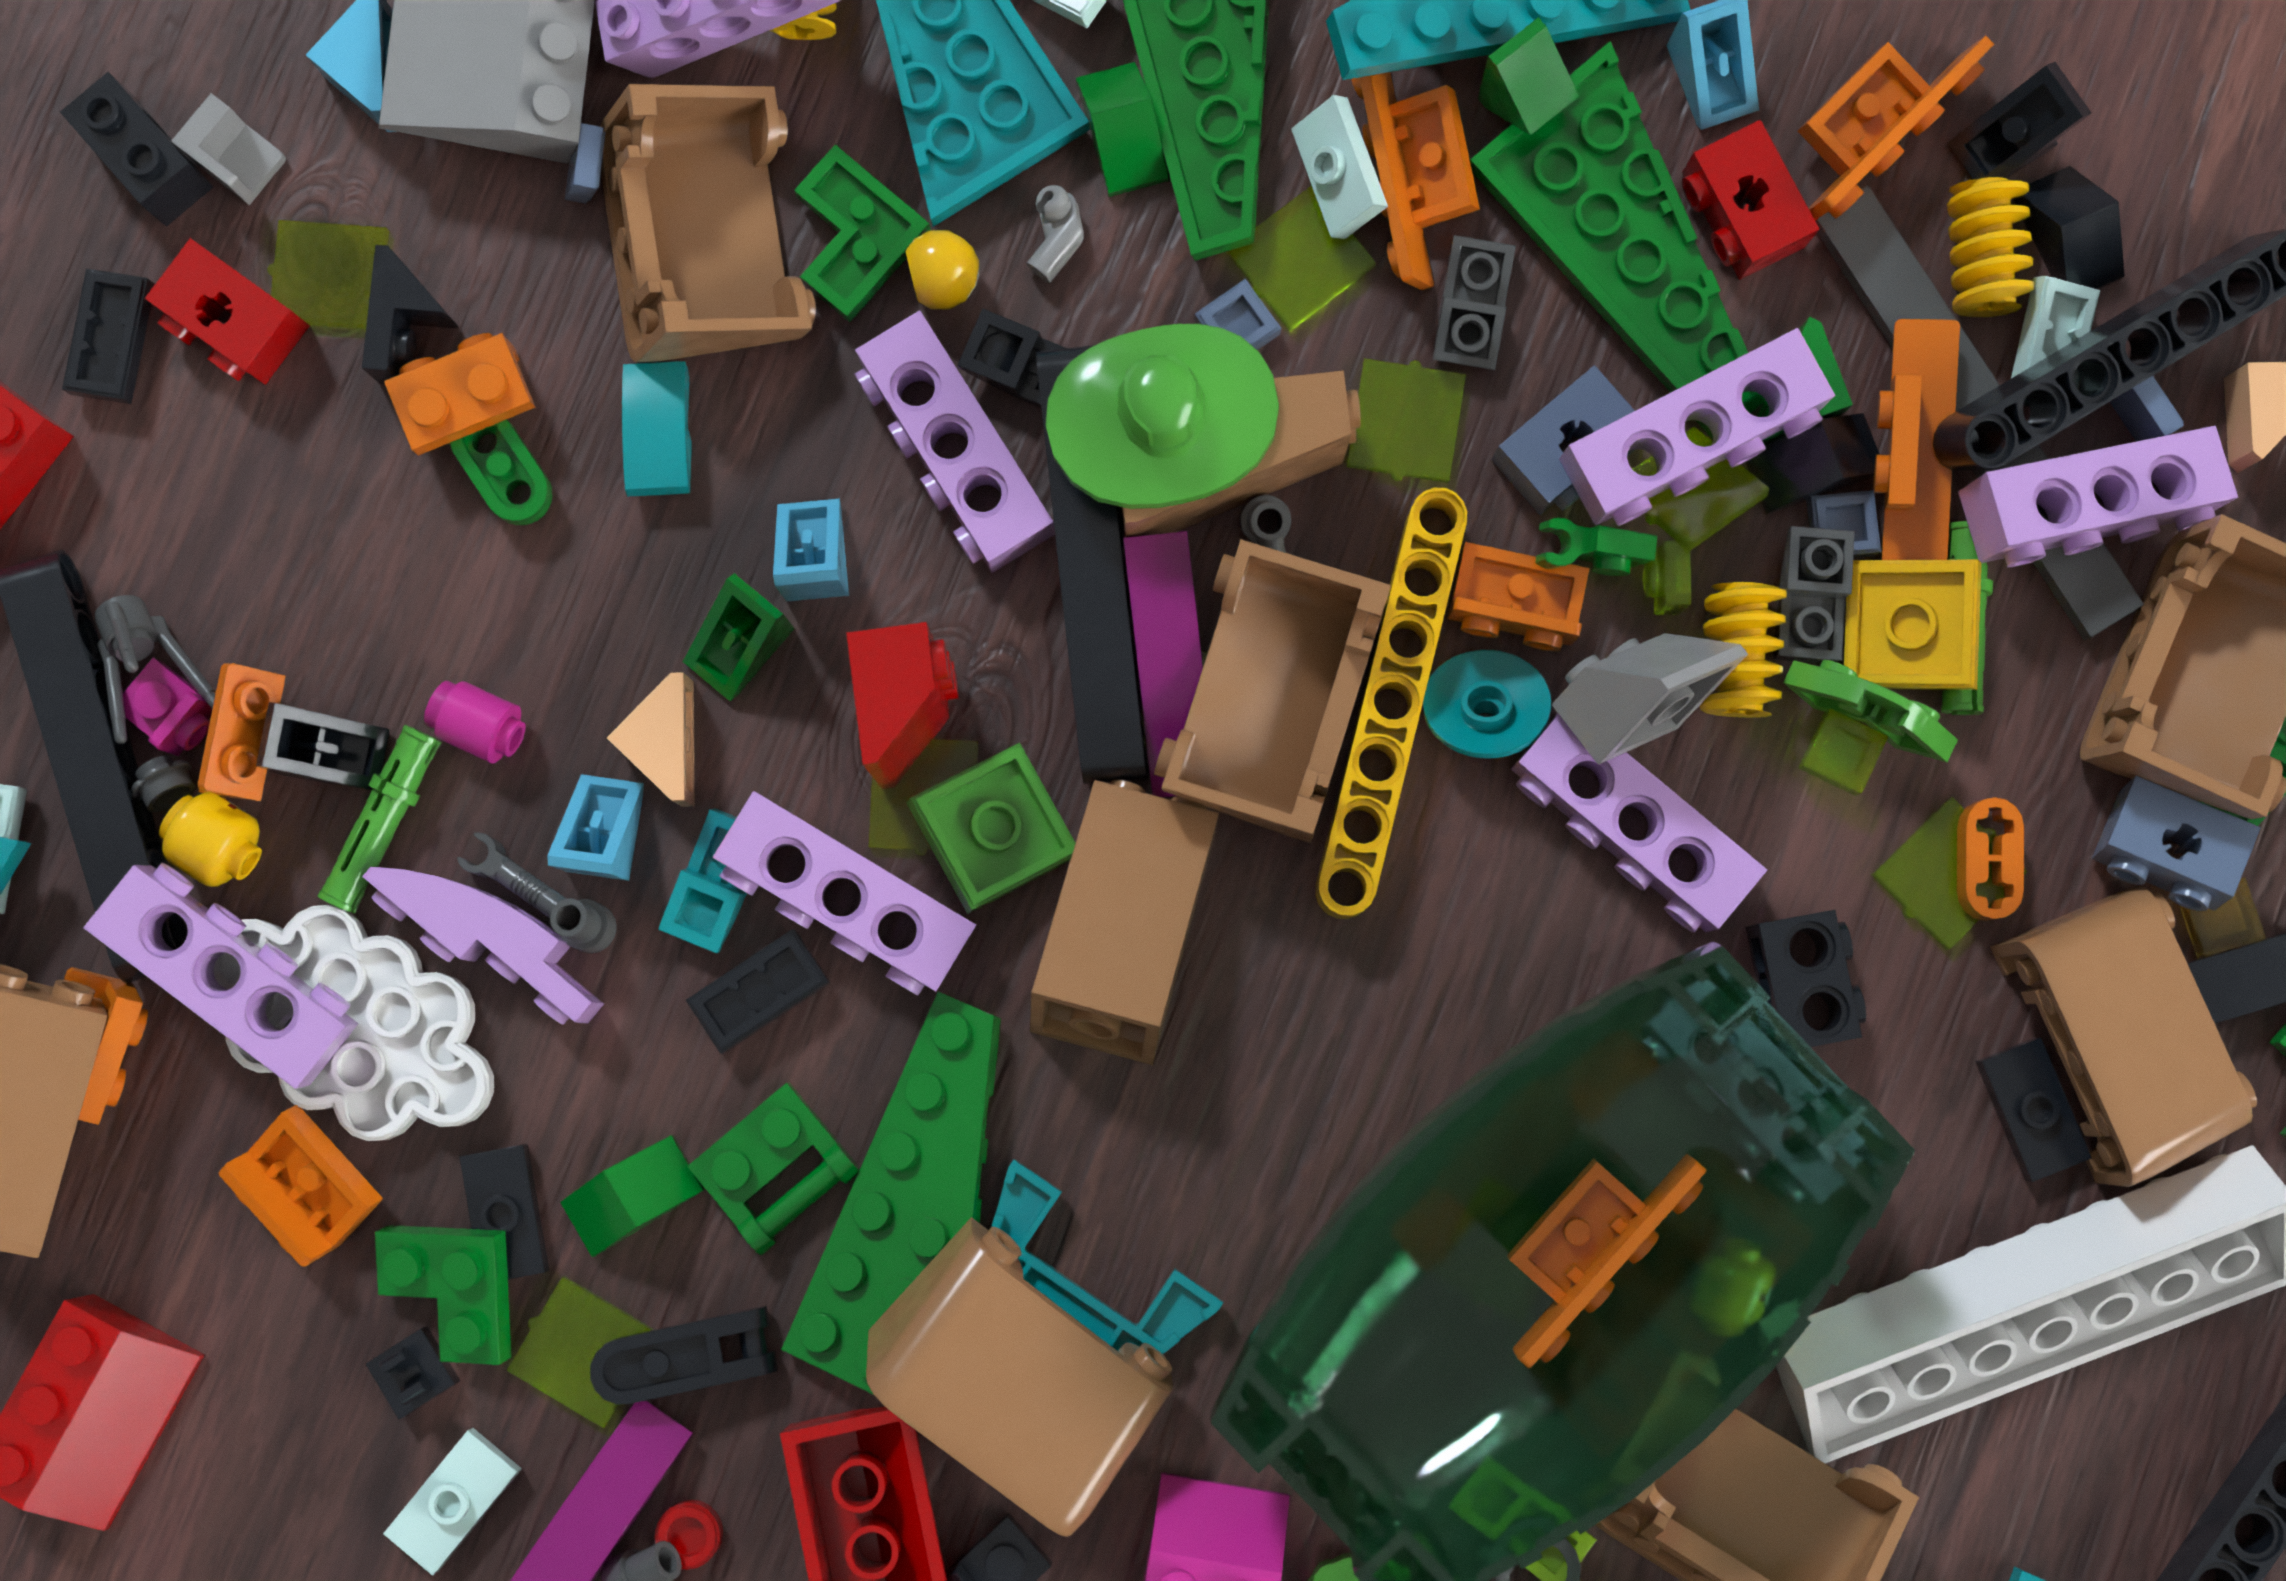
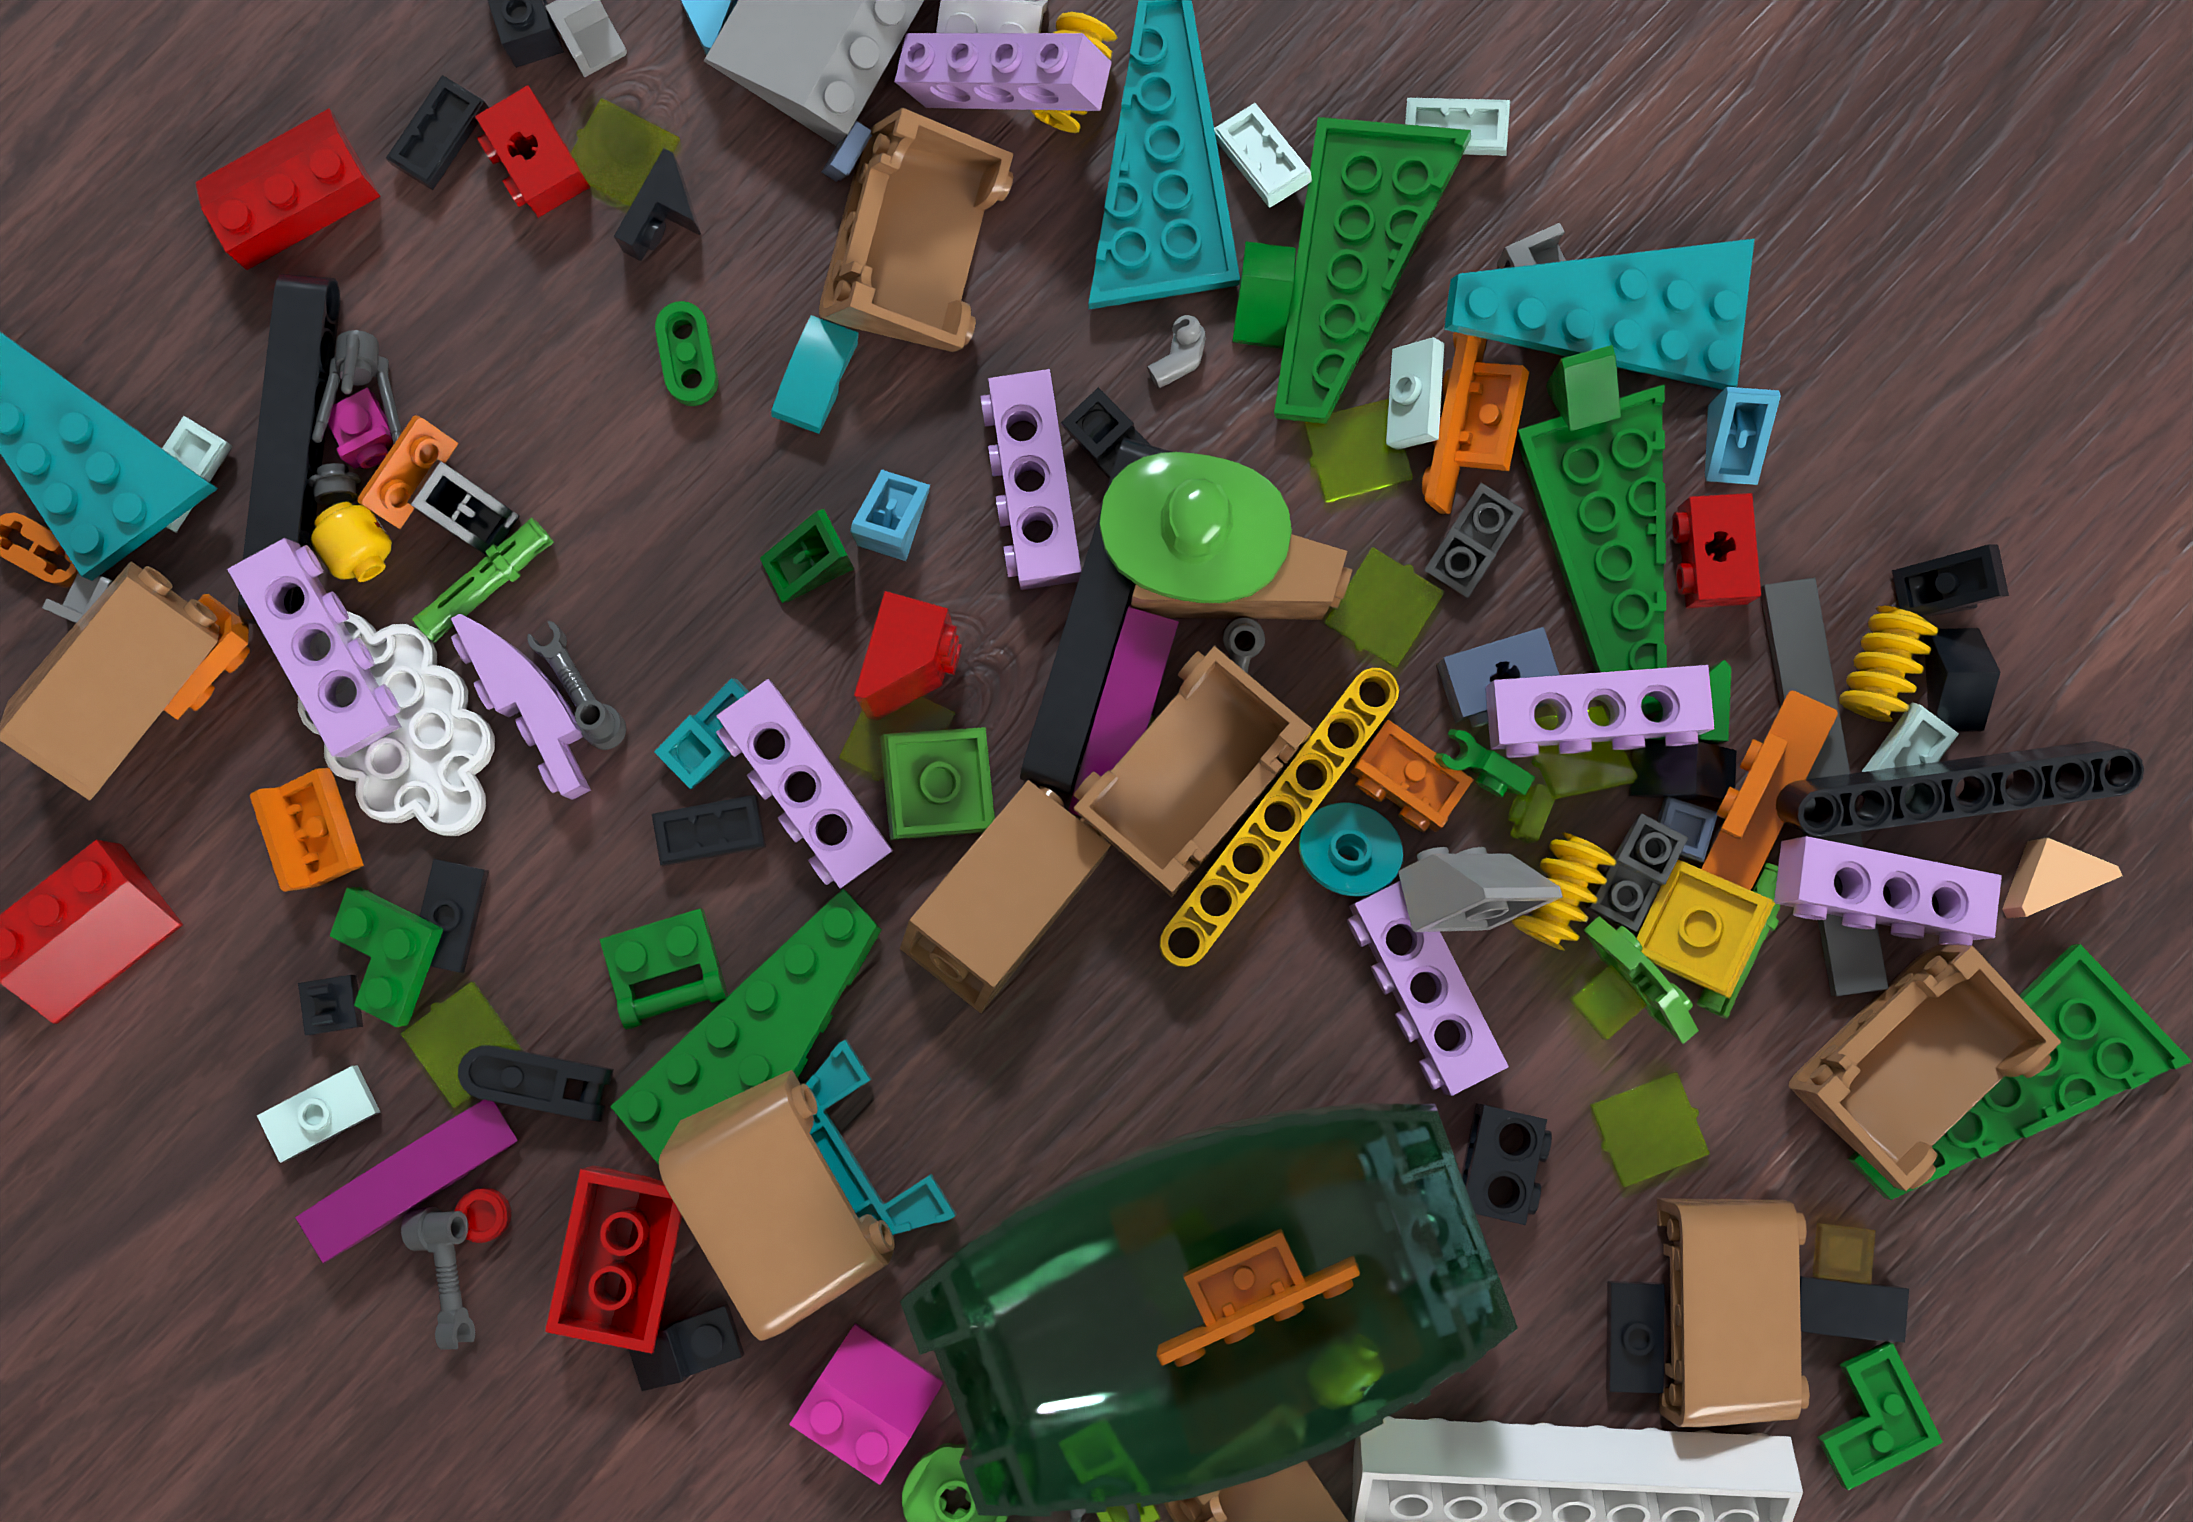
camera: 20 degrees right, 0 degrees up
(459, 392) = (678, 285): orange bracket -> none
(475, 720) = (585, 537): dark pink brick -> none
(599, 828) = (642, 657): medium azure slope -> none
(631, 1195) = (549, 942): green slope -> none
(661, 738) = (718, 609): light nougat slope -> none
(871, 231) = (1041, 293): green plate -> none
(942, 269) = (1081, 344): yellow piece -> none
(1241, 313) = (1291, 475): sand blue tile -> none
(1873, 112) = (1843, 523): orange bracket -> none
(2006, 859) = (1696, 1137): orange beam -> none
(2147, 411) = (1955, 842): sand blue tile -> none
(2211, 843) = (1860, 1191): sand blue brick -> none

